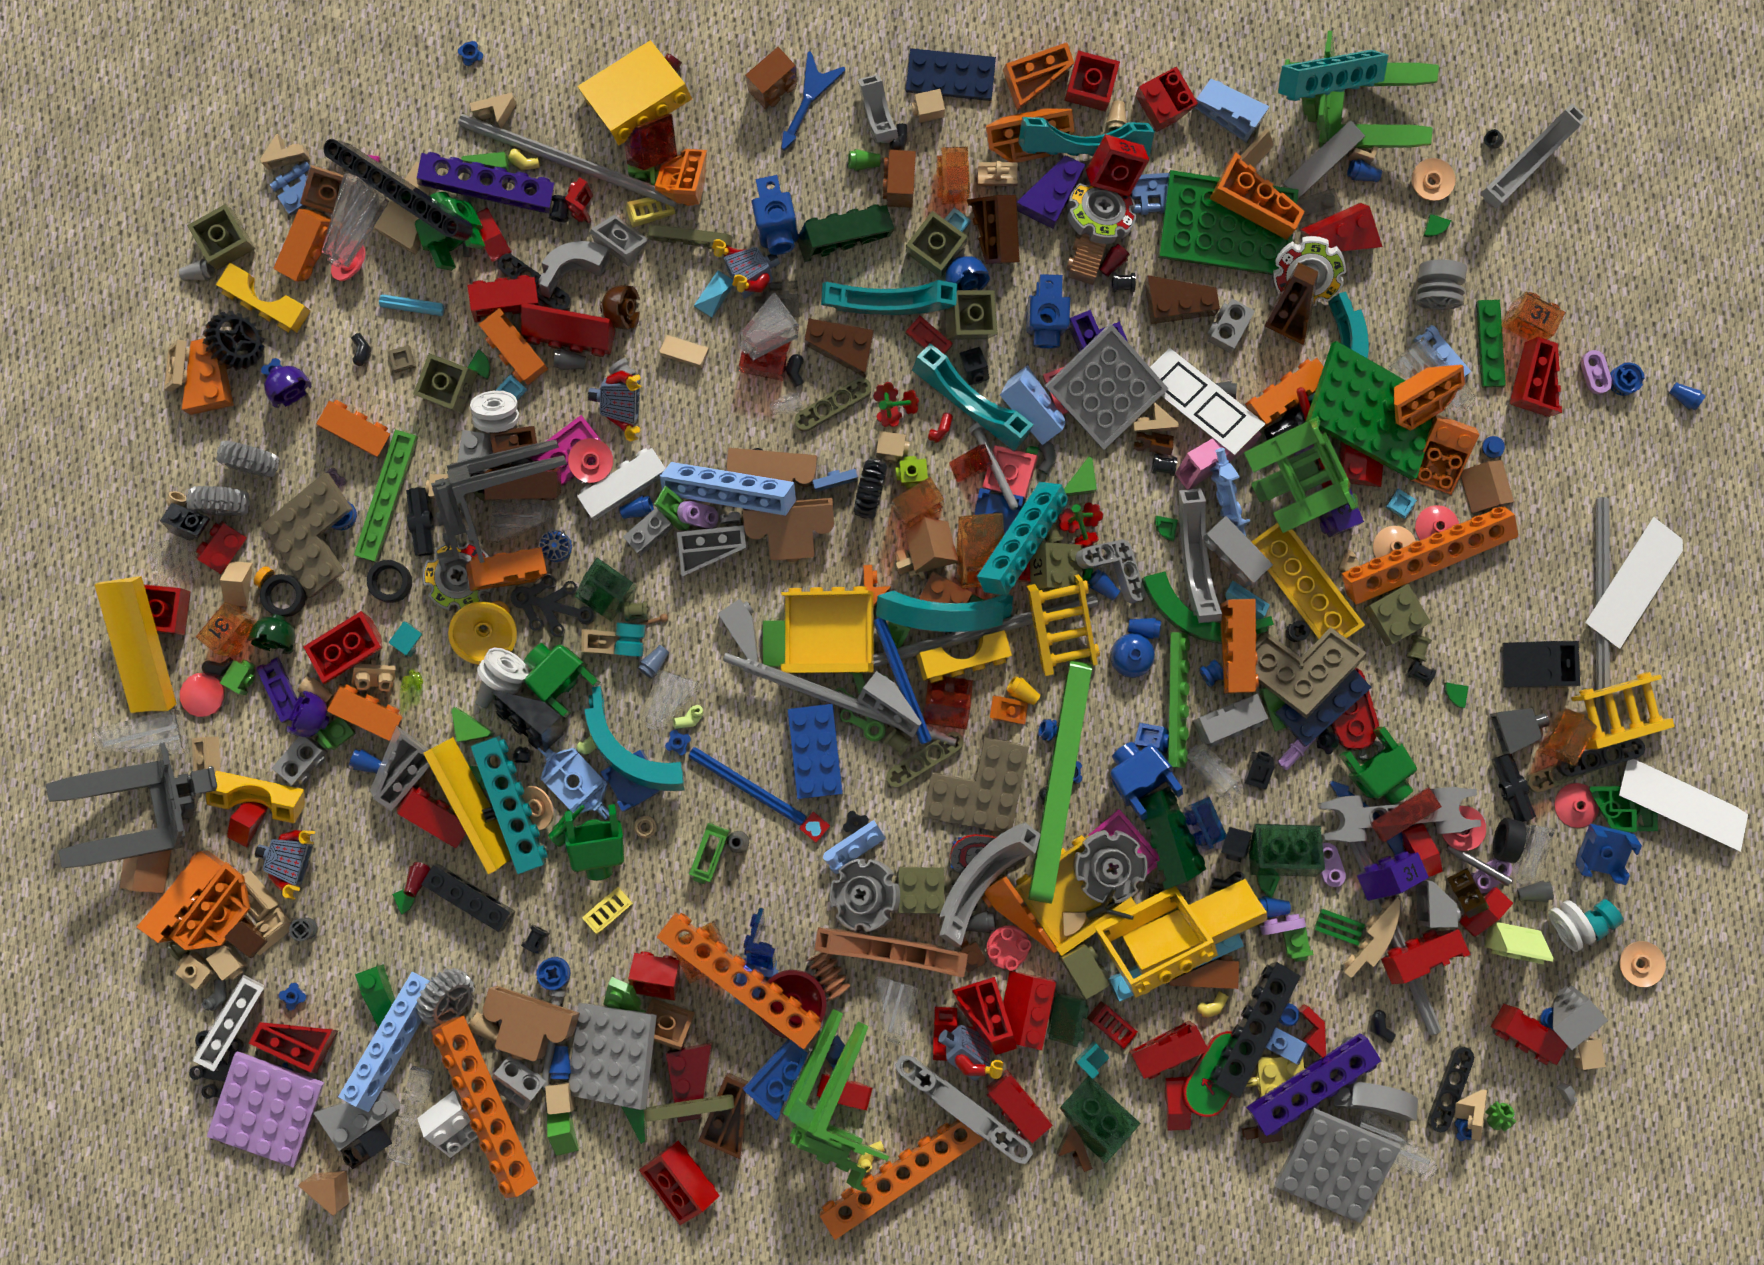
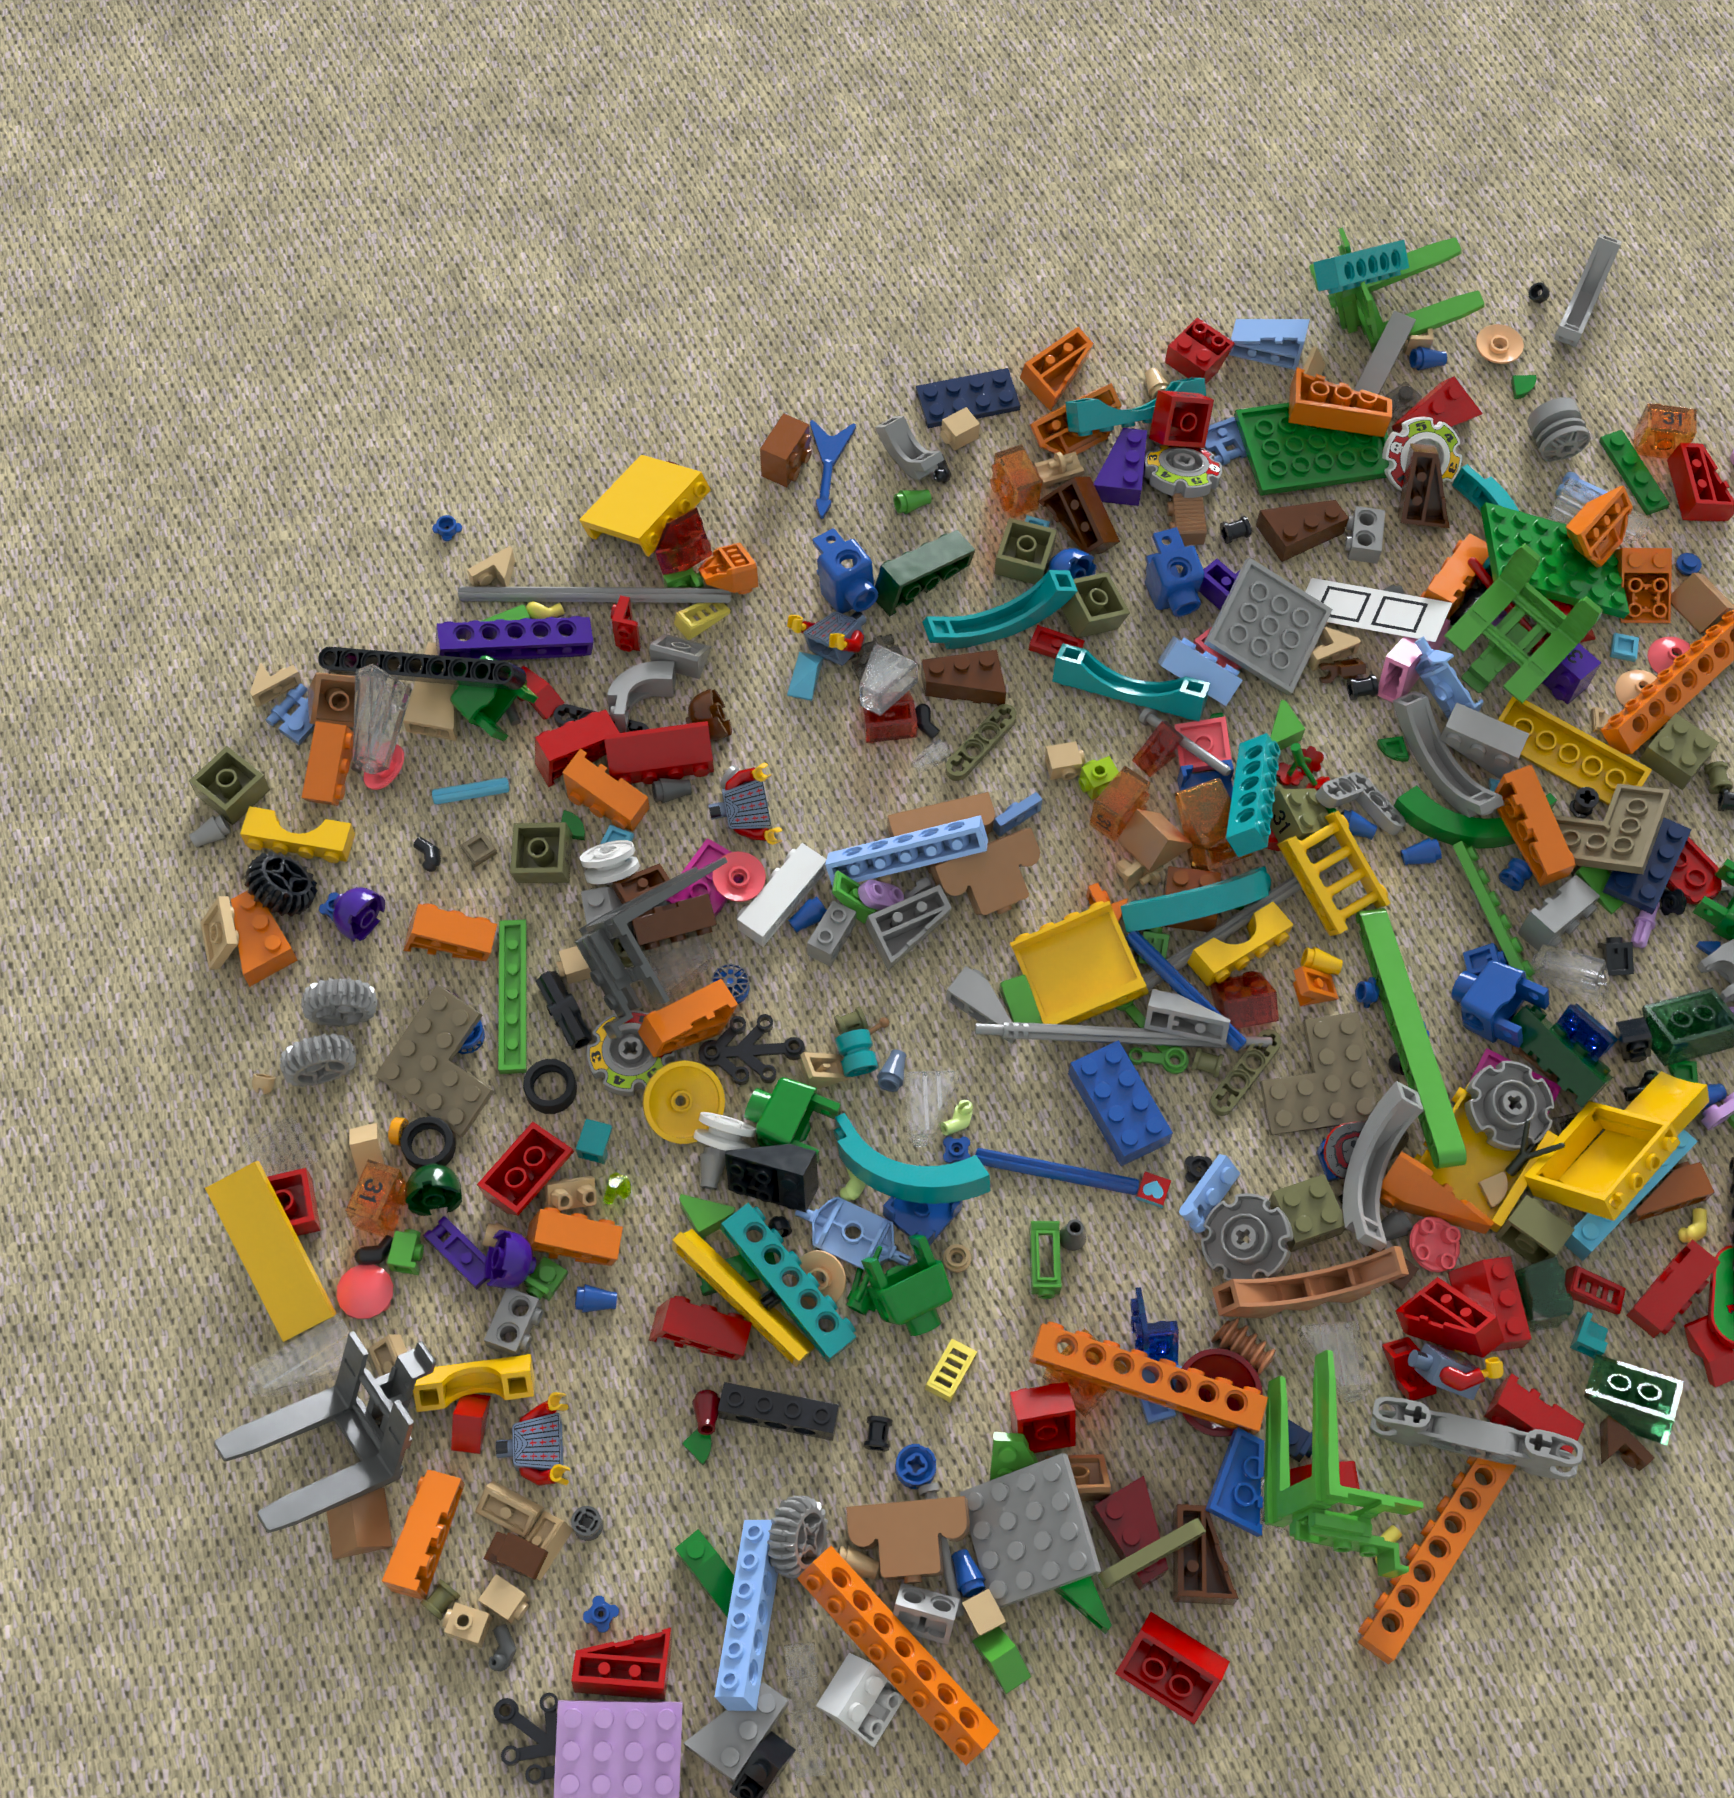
camera: 20 degrees left, 20 degrees down
(184, 522) = (285, 1097): black slope -> none
(214, 912) = (471, 1535): orange wedge -> none
(220, 547) = (333, 1115): red bracket -> none
(228, 1023) = (534, 1669): white brick -> none
(399, 769) = (641, 1286): light grey wedge -> none
(559, 209) = (606, 638): black bush -> none
(604, 589) = (806, 1009): clear green slope -> none
(684, 351) = (795, 742): tan slope -> none
(687, 236) = (755, 627): olive beam -> none
(870, 488) = (1061, 806): black gear -> none
(889, 411) = (1037, 713): red plant -> none
(900, 174) = (961, 500): dark orange brick -> none
(943, 429) = (1111, 728): red arm -> none
(974, 365) = (1118, 655): black bracket -> none
(1049, 456) = (1238, 720): dark grey arm -> none
(1092, 81) = (1117, 357): red brick -> none
(1115, 258) = (1216, 510): dark red cone -> none
(1132, 655) = (1421, 886): blue cylinder -> none

